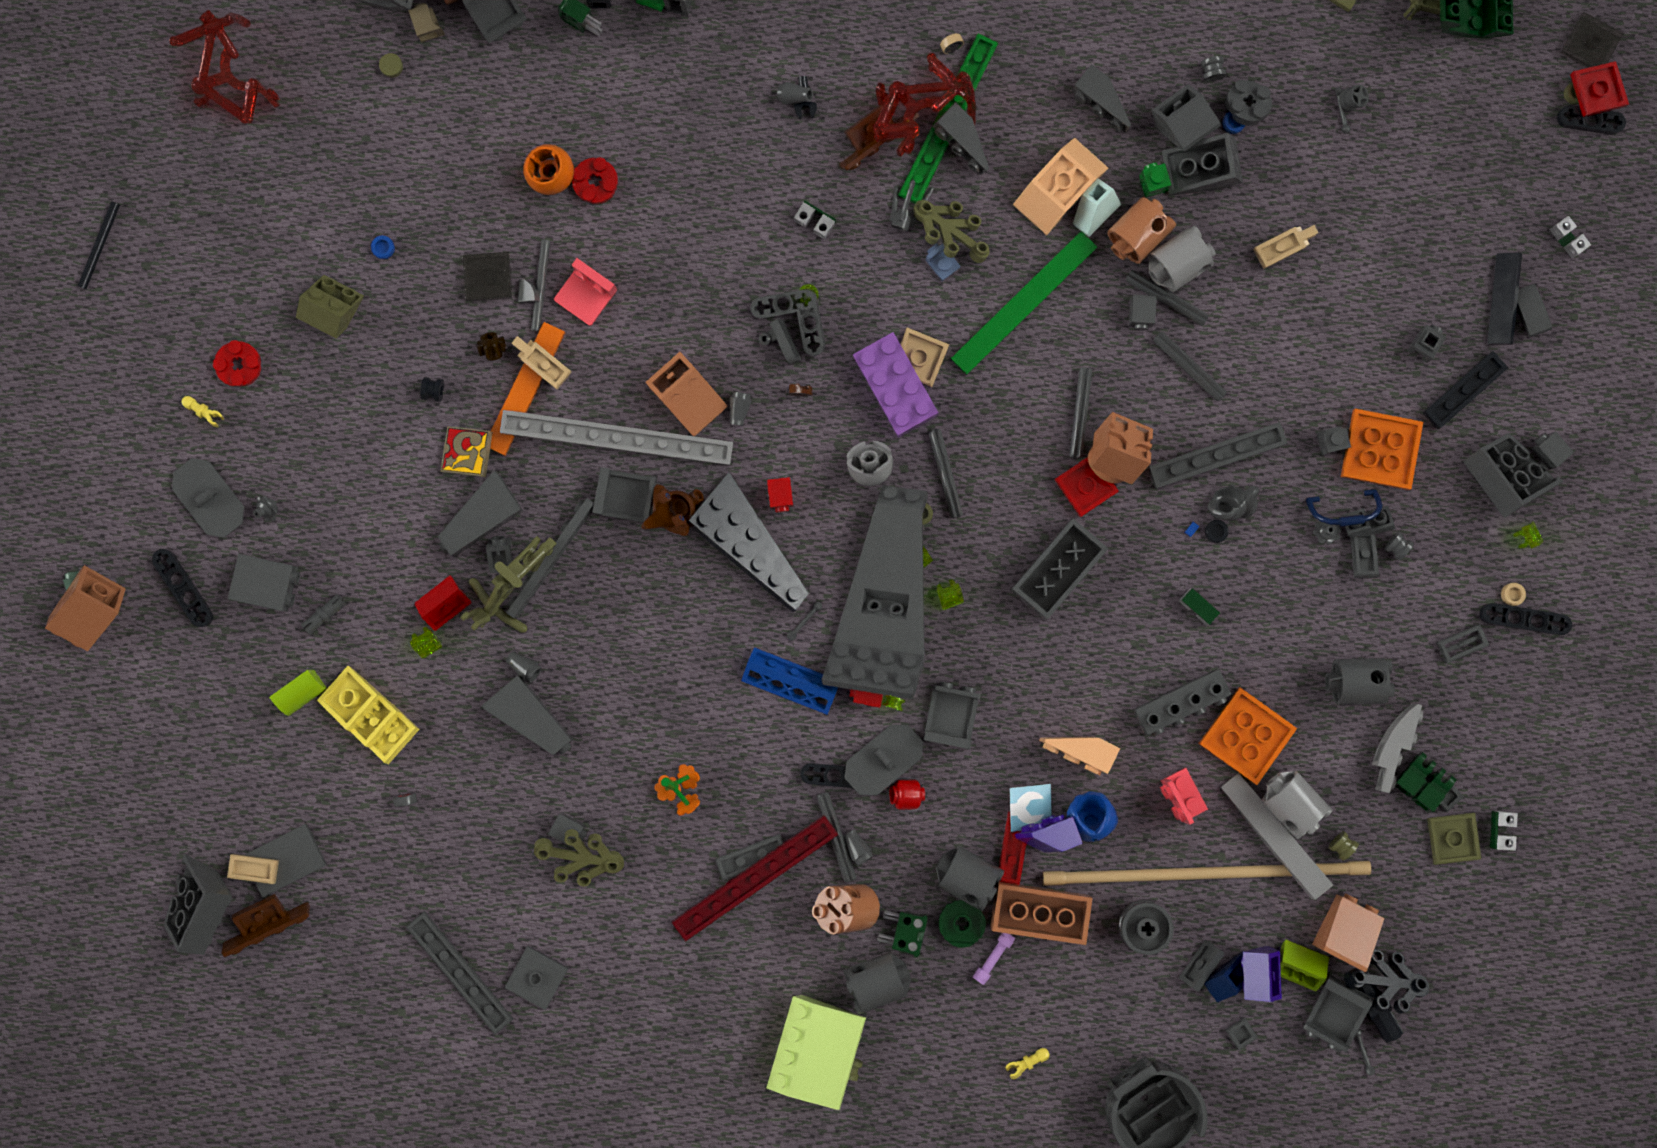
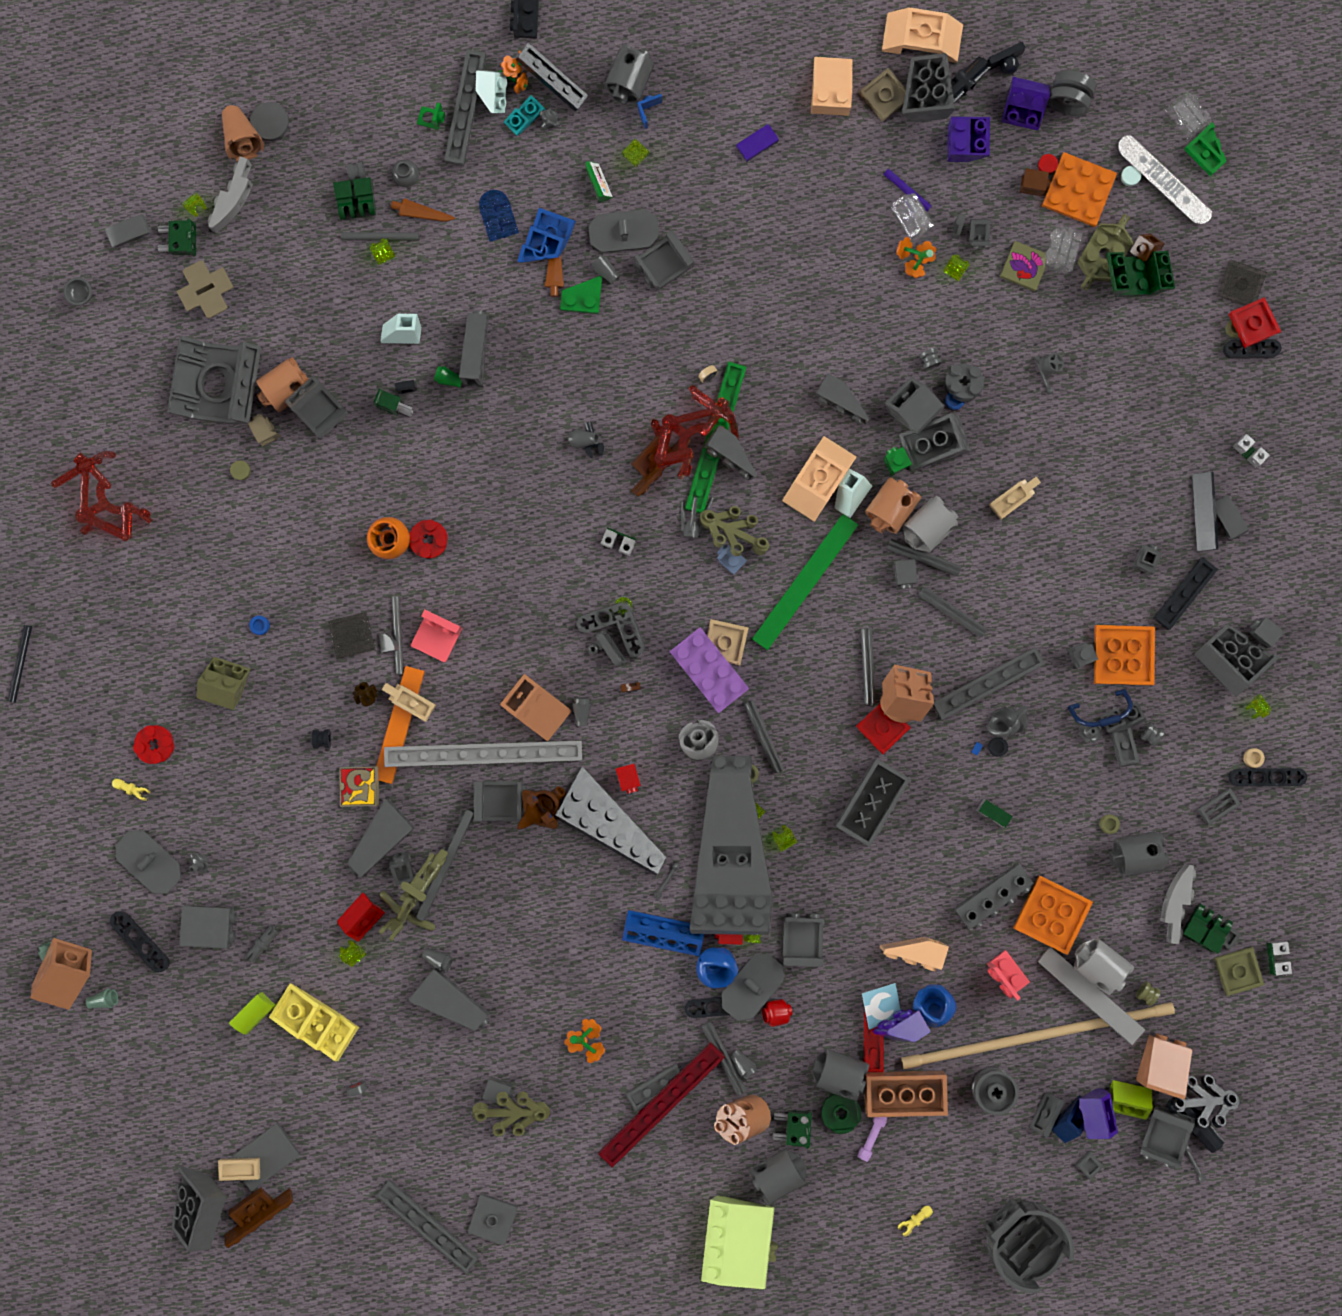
camera: 10 degrees left, 0 degrees up
(128, 647) = (103, 999): none -> sand green cone
(846, 729) = (716, 968): none -> blue piece
(1331, 642) = (1109, 824): none -> olive tile

